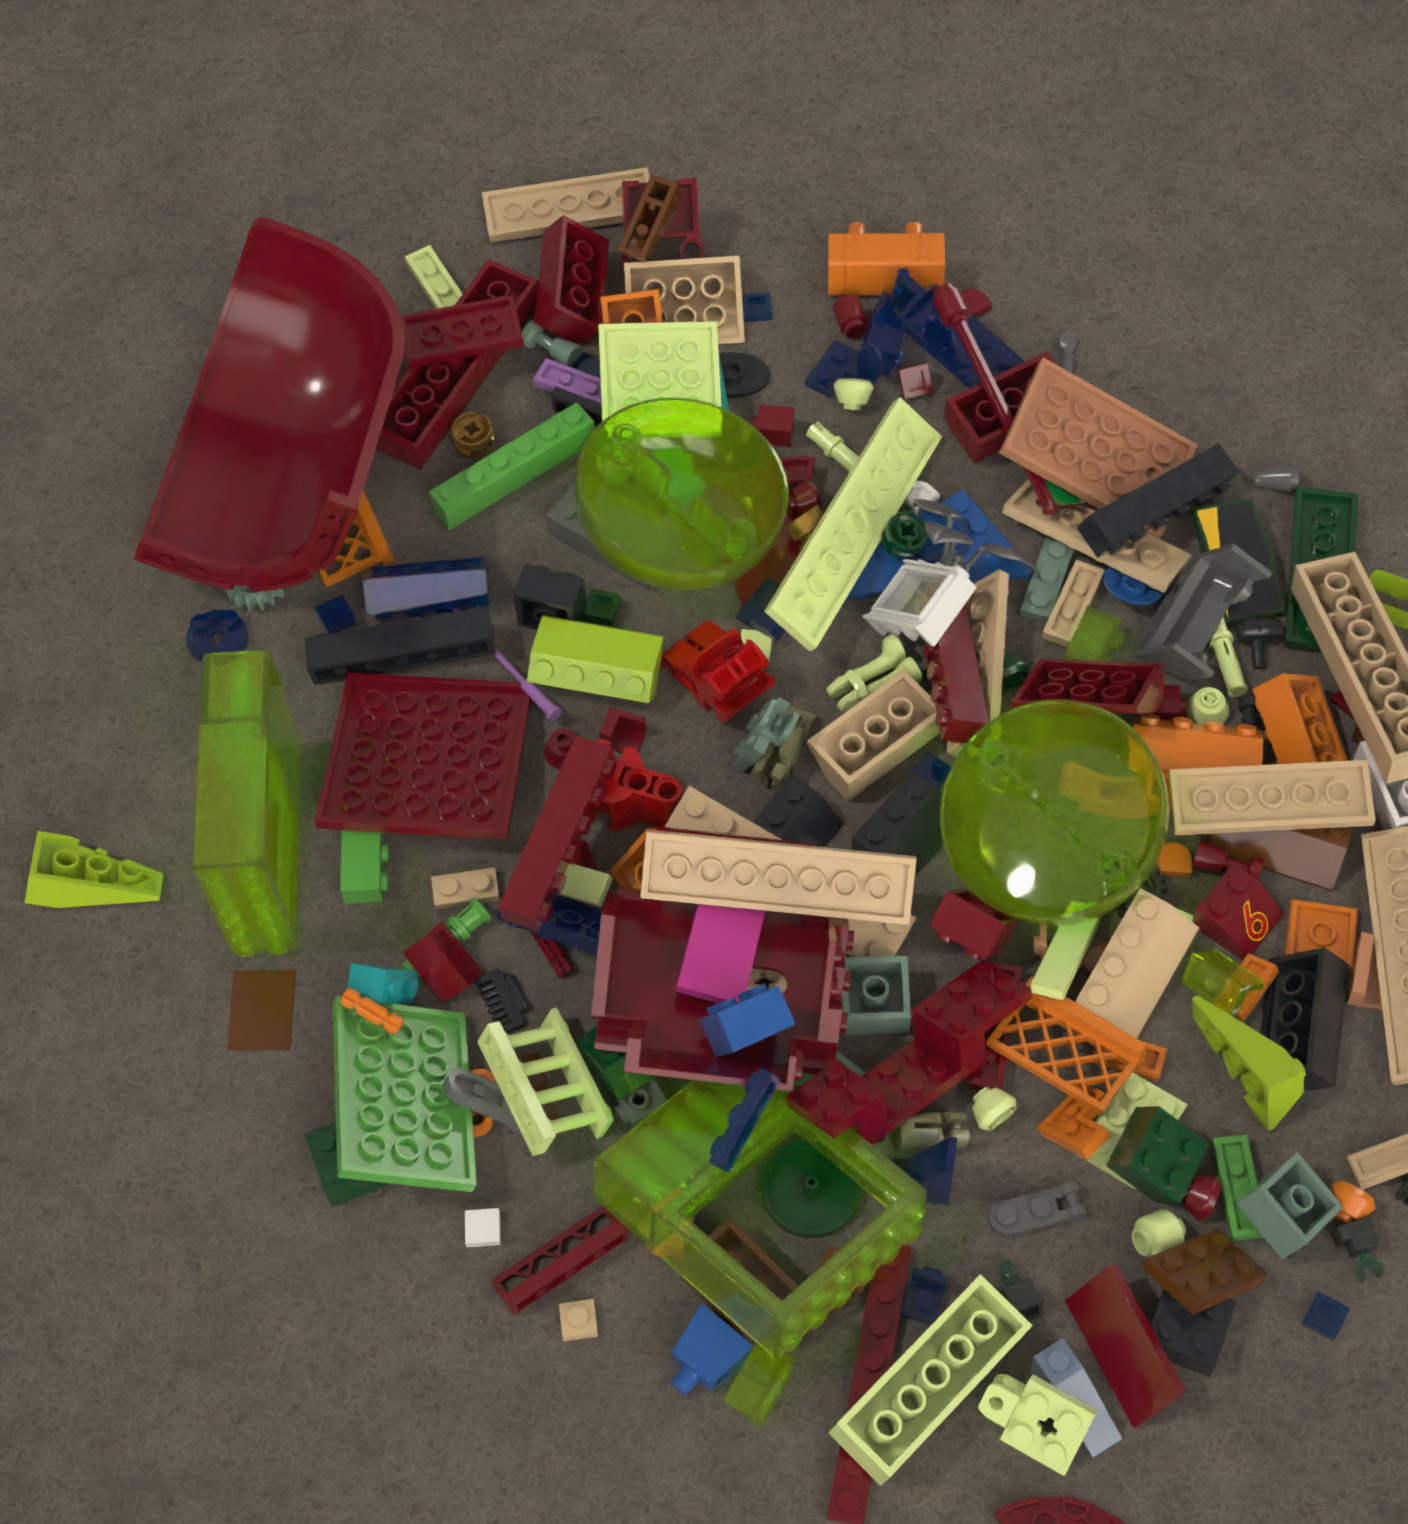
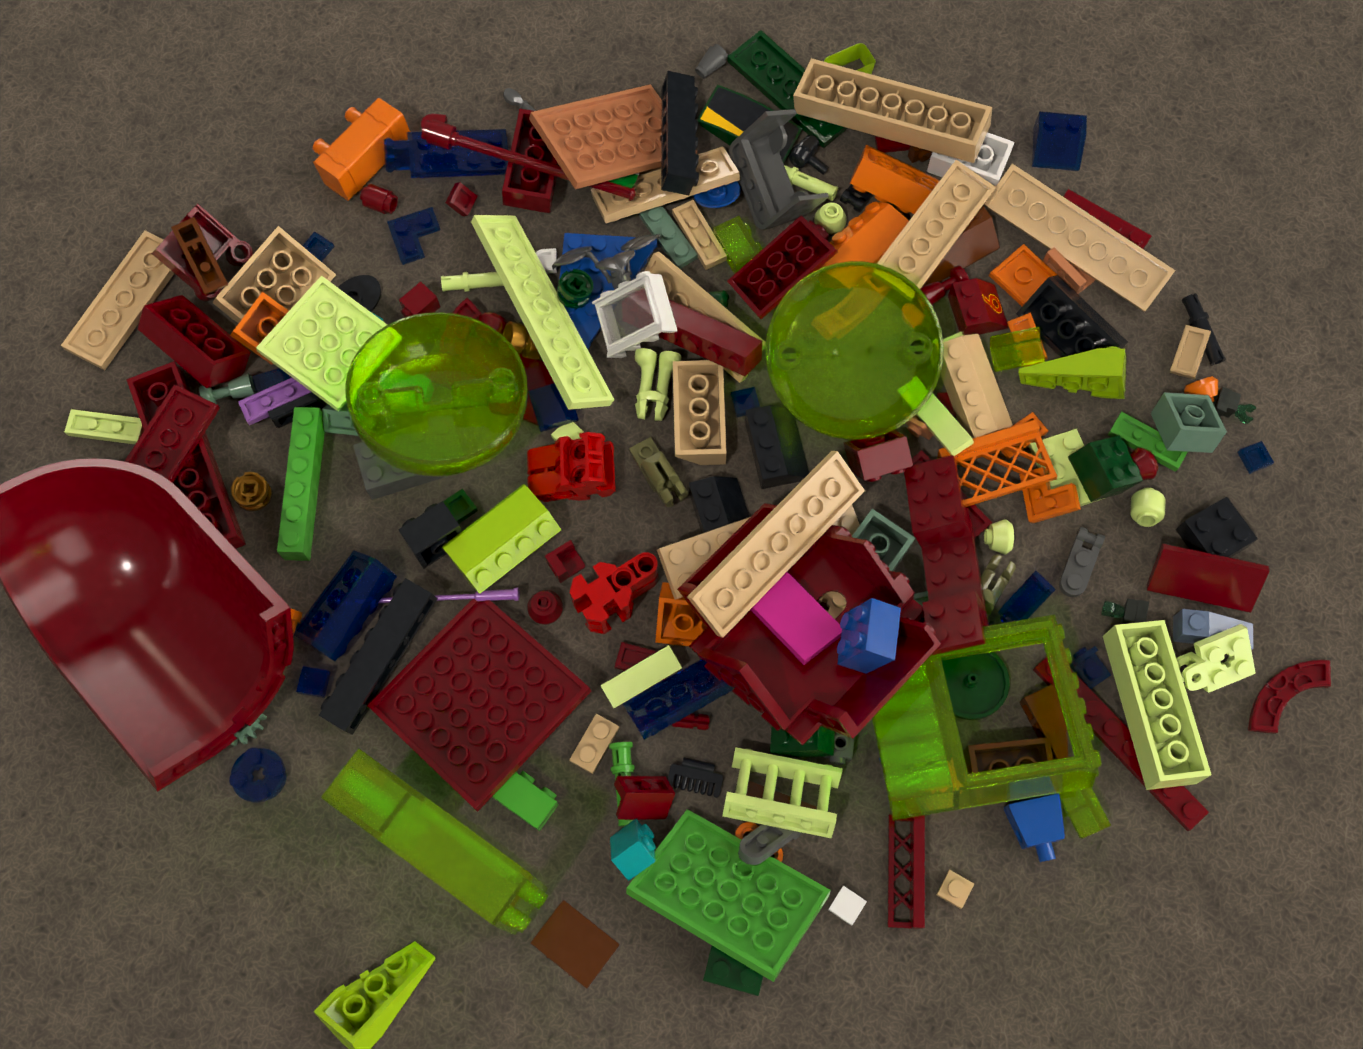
camera: 55 degrees left, 10 degrees up
(371, 1011) = (656, 871): orange axle -> none
(557, 834) = (625, 655): dark red brick -> none
(743, 1119) = (942, 688): clear blue plate -> none
(768, 726) = (644, 475): sand green plate -> none
(853, 392) = (437, 240): yellowish green cone -> none
(882, 340) = (415, 192): clear blue slope -> none
(1205, 1271) = (1196, 499): reddish brown plate -> none

